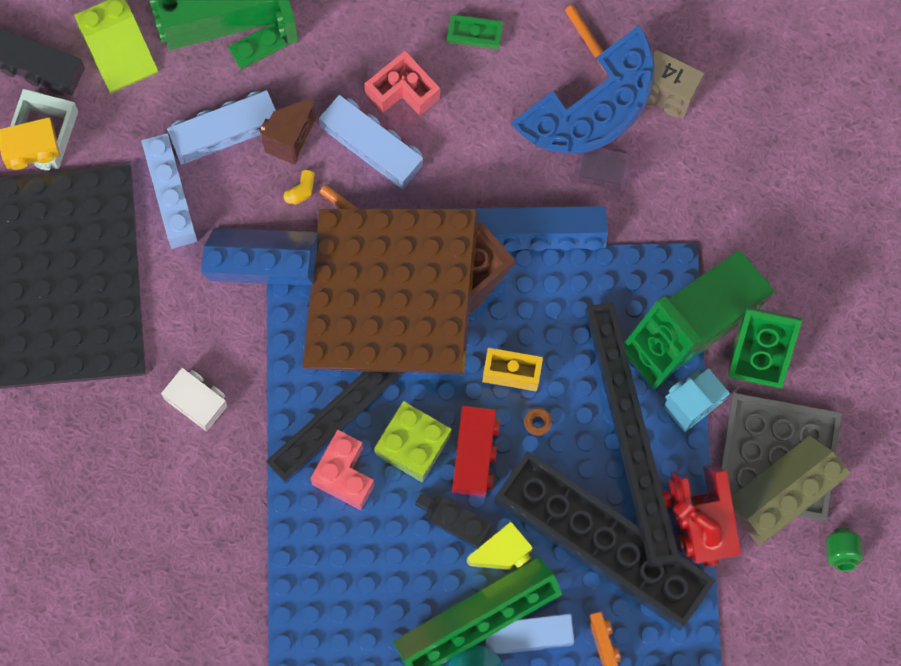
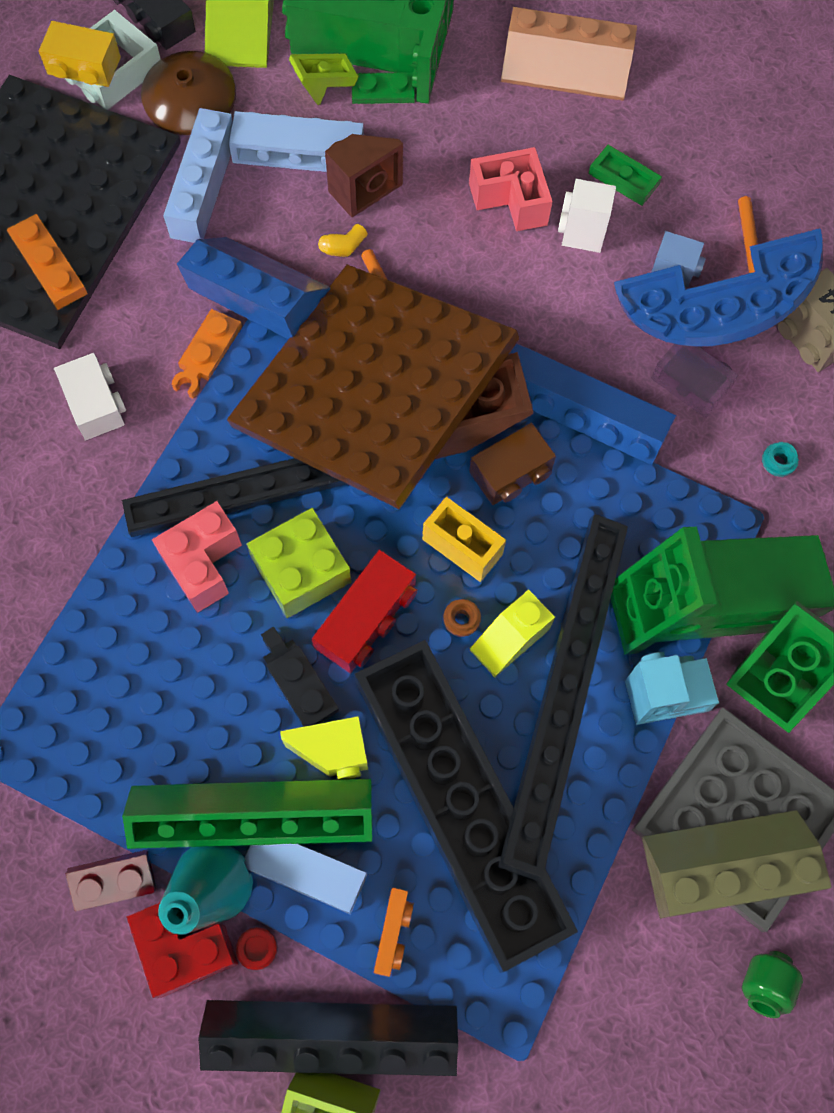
camera: 30 degrees right, 5 degrees down
(101, 316) = (47, 261): none -> orange plate
(117, 141) = (175, 102): none -> reddish brown dish
(212, 60) = (323, 71): none -> lime slope
(252, 321) = (206, 350): none -> orange plate
(371, 142) = (447, 229): light blue brick -> none
(468, 84) = (586, 215): none -> white brick
(515, 299) = (512, 464): none -> reddish brown brick
(547, 79) = (680, 251): none -> medium blue brick
(576, 416) = (512, 633): none -> neon yellow slope
(688, 191) = (786, 452): none -> teal plate
(704, 519) = (605, 844): red torso -> none

